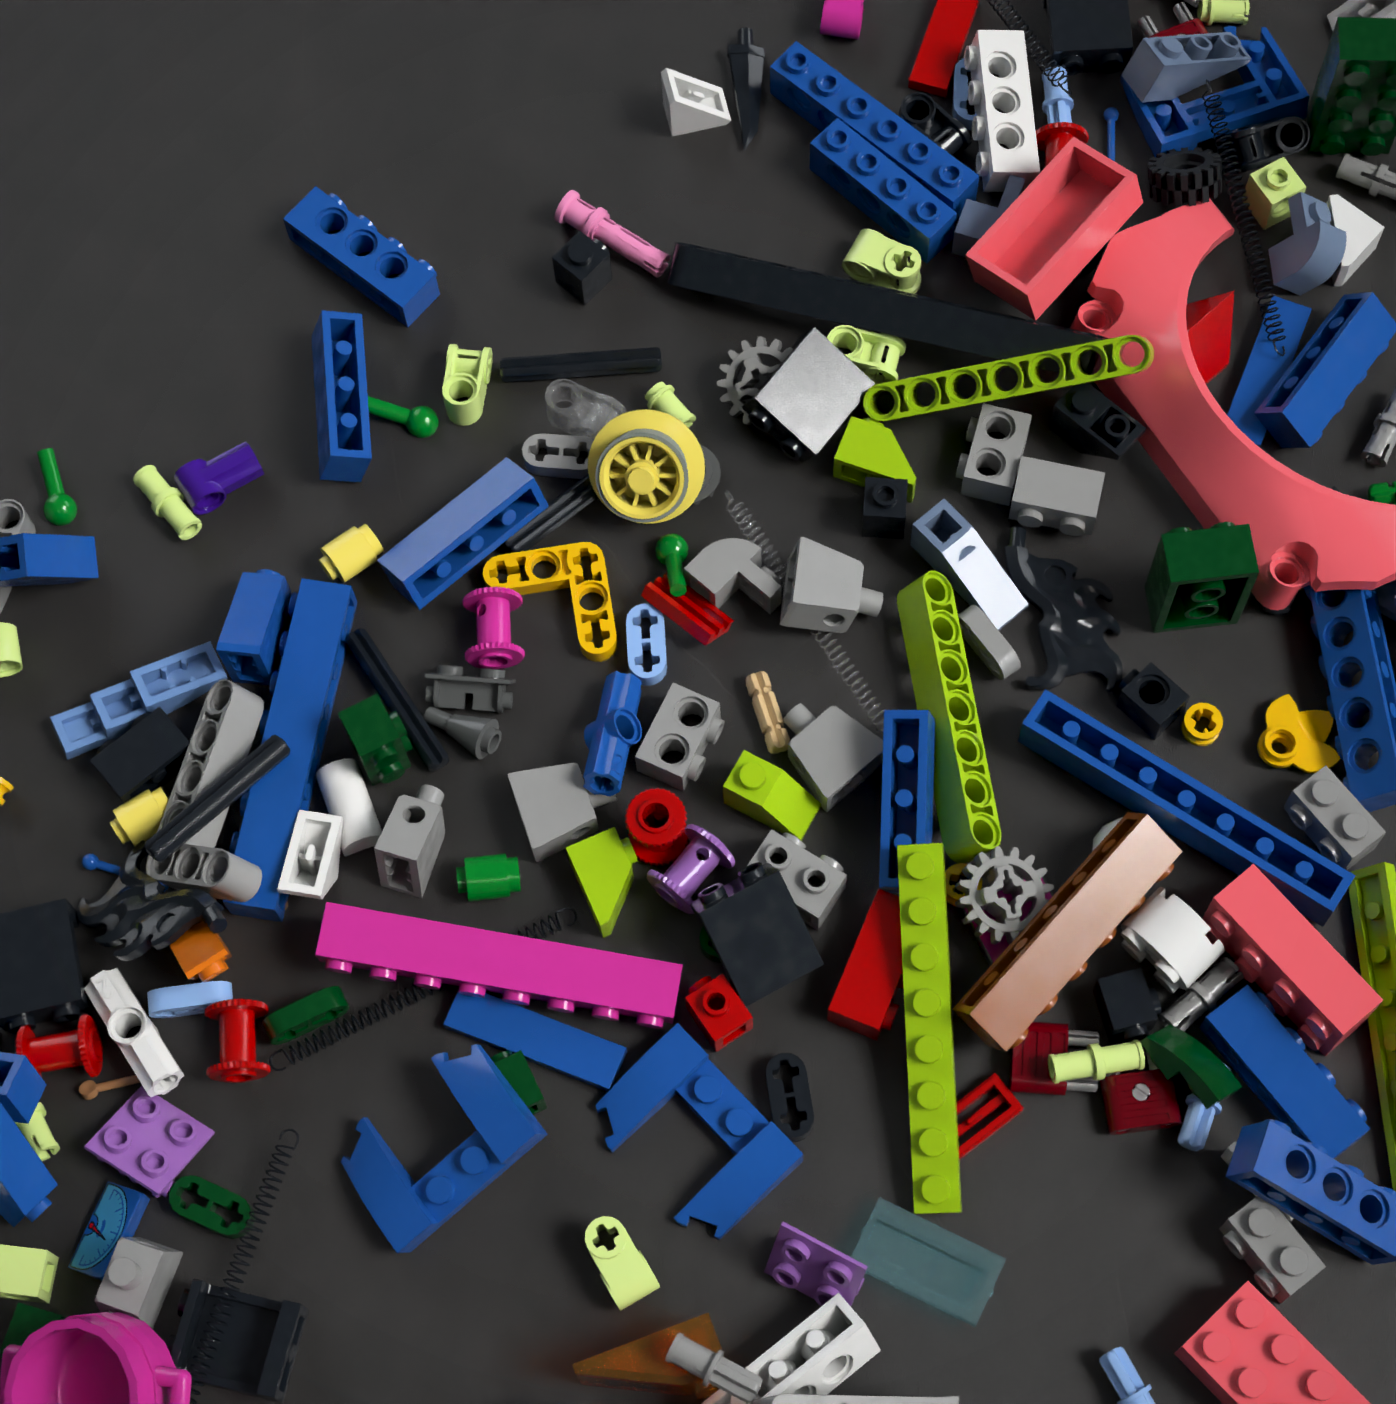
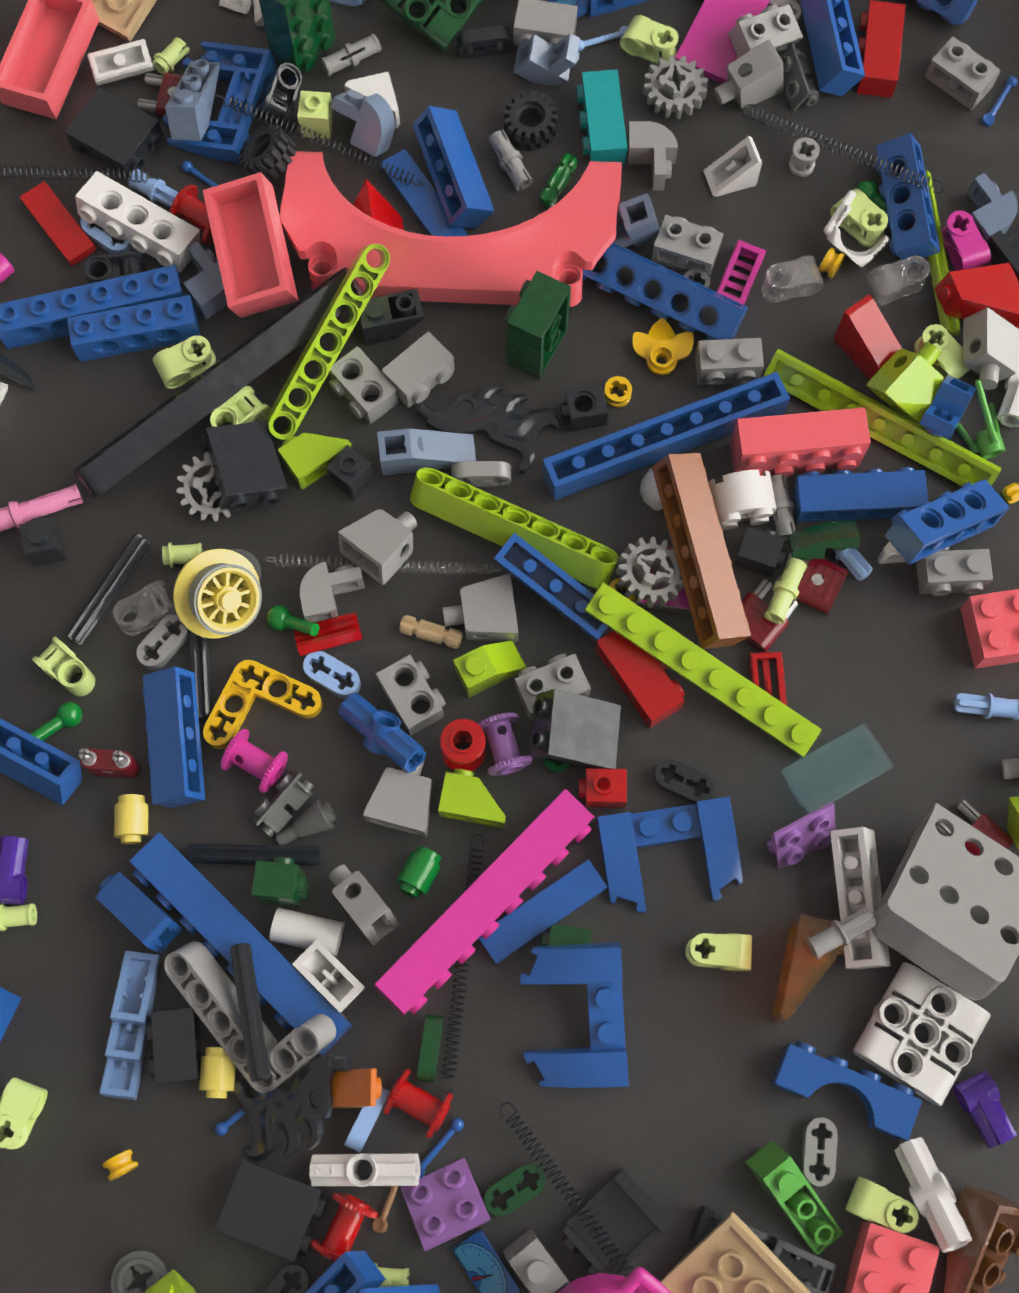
camera: 60 degrees left, 5 degrees up
(242, 1099) = (455, 1125): none -> blue hinge
(393, 491) = (109, 763): none -> dark red piece

